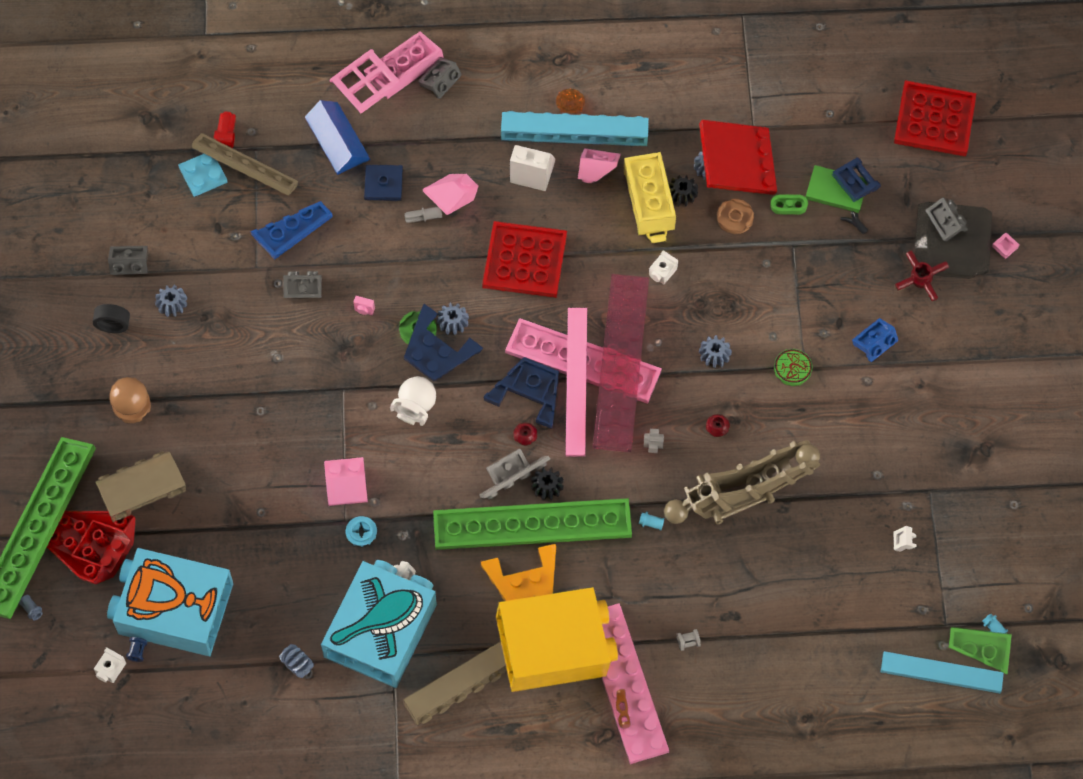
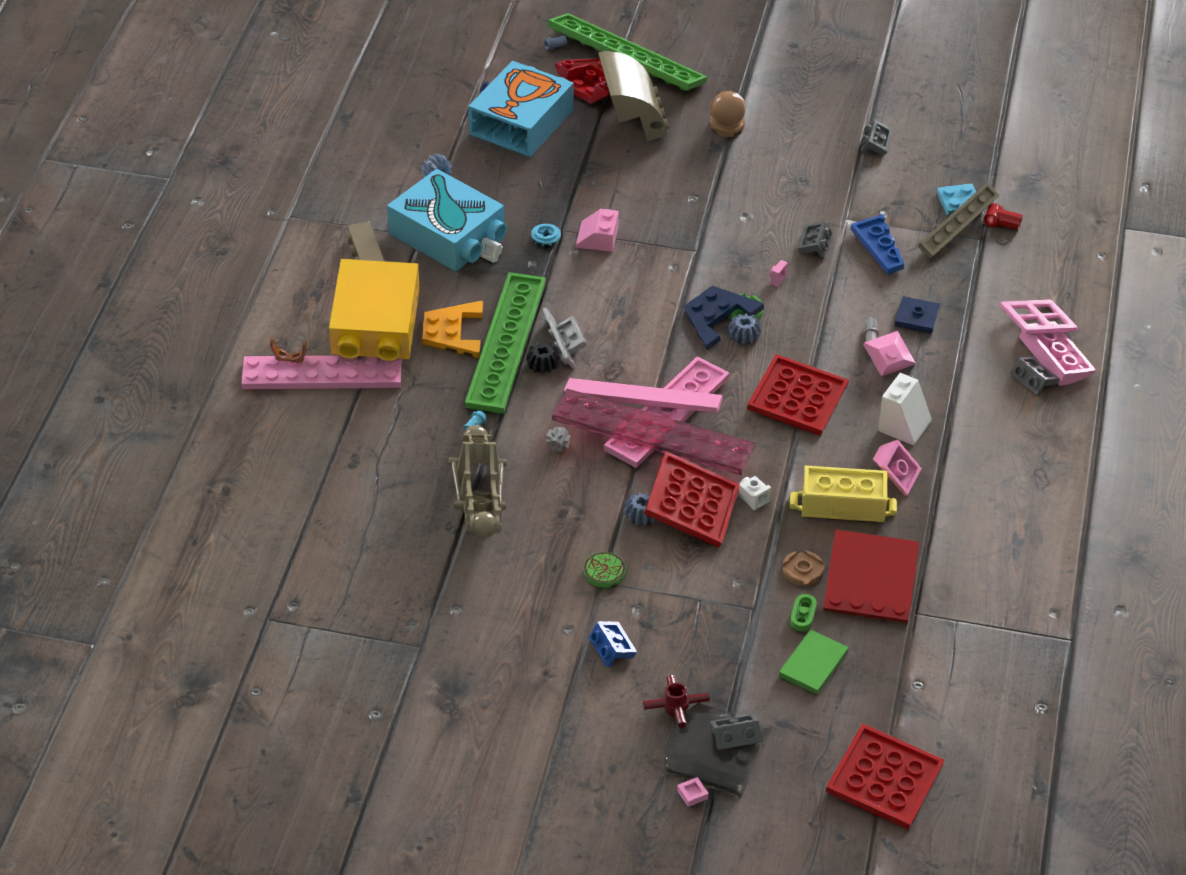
camera: 105 degrees right, 20 degrees down
(111, 318) = (813, 114): black tyre -> none
(111, 673) = (482, 72): white brick -> none
(178, 303) = (823, 156): sand blue gear -> none
(336, 136) = (980, 293): slope -> none
(415, 399) = (660, 280): white tile -> none
(525, 439) = (603, 357): dark red plate -> none
(532, 382) = (653, 371): dark blue wing -> none
(569, 95) = (982, 461): clear orange gear -> none
(574, 128) = (945, 461): medium azure brick -> none
(683, 190) = (845, 522): black gear -> none
(688, 640) = (341, 416): light grey bush -> none
(696, 311) = (692, 499): none -> red plate
(713, 429) = (559, 495): dark red plate -> none
(851, 181) = (815, 665): dark blue plate -> none
(856, 222) = (765, 667): black bar -> none
(903, 539) = (372, 602): white tile -> none
(942, 672) = (219, 599): medium azure tile -> none
(982, 645) = (233, 631): bright green wing -> none
(993, 624) = (247, 652): medium azure pin -> none

